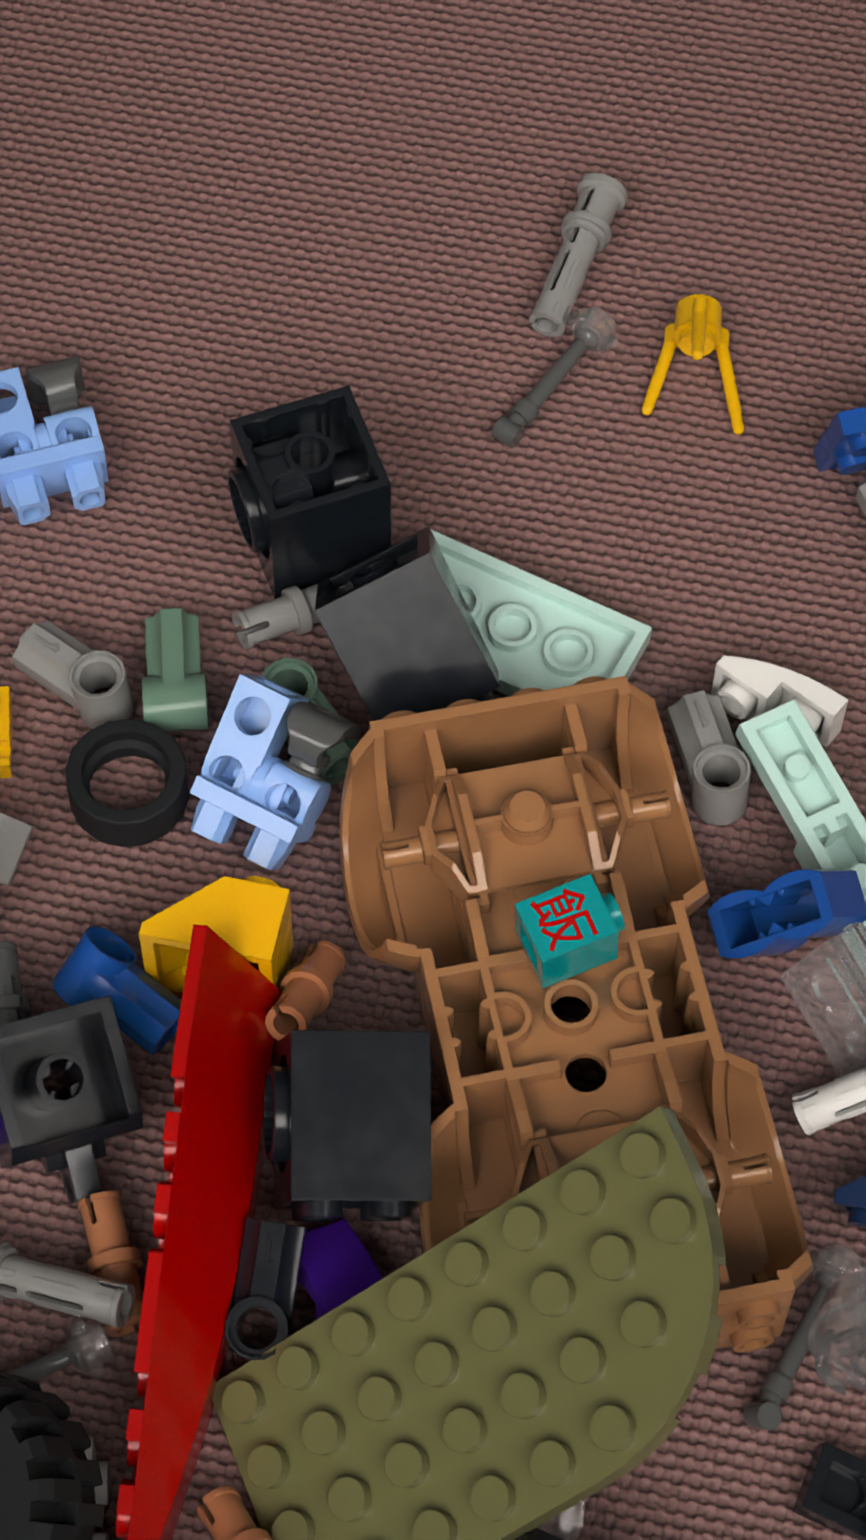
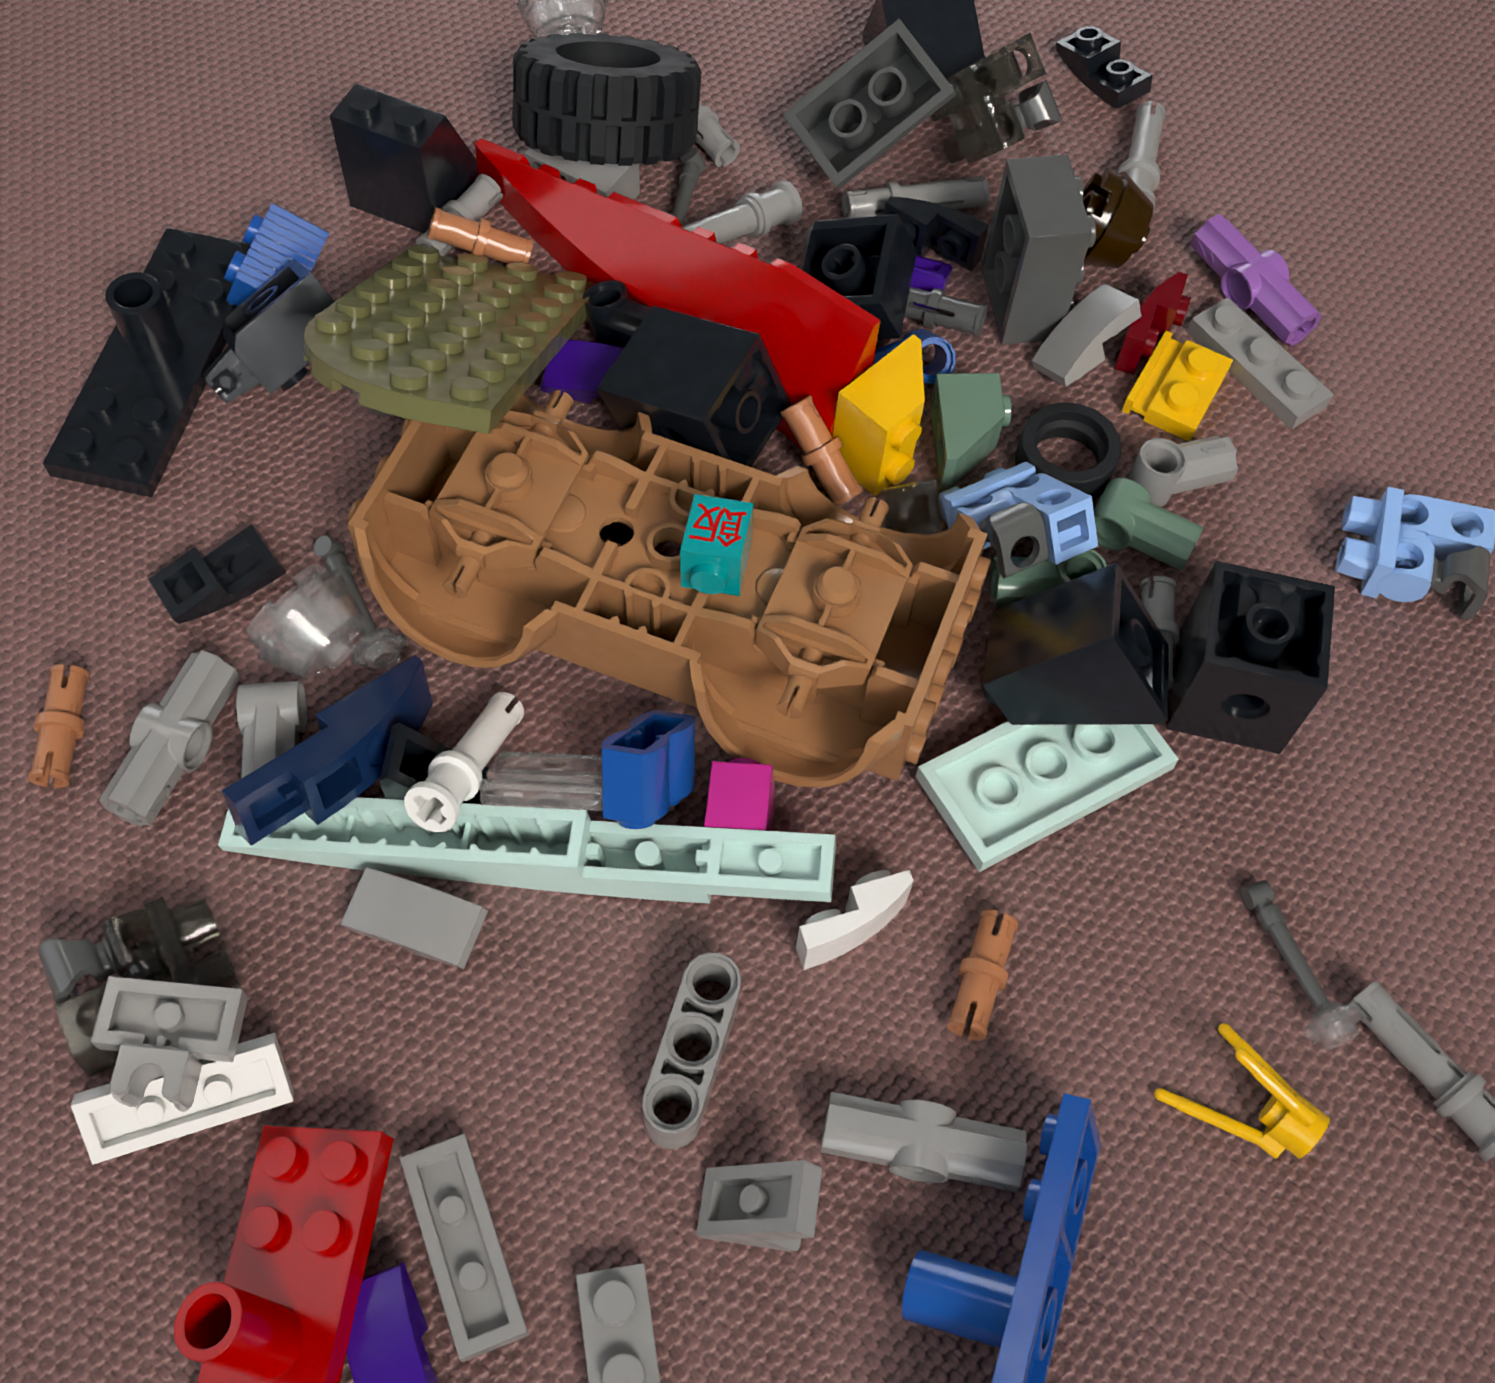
camera: 120 degrees right, 0 degrees up
(149, 878) = (966, 422): none -> sand green slope
(307, 888) = (913, 508): none -> clear smoke slope
(710, 757) = (860, 839): light grey piece -> none
(744, 588) = (982, 975): none -> nougat pin
(749, 842) = (740, 795): none -> dark pink brick

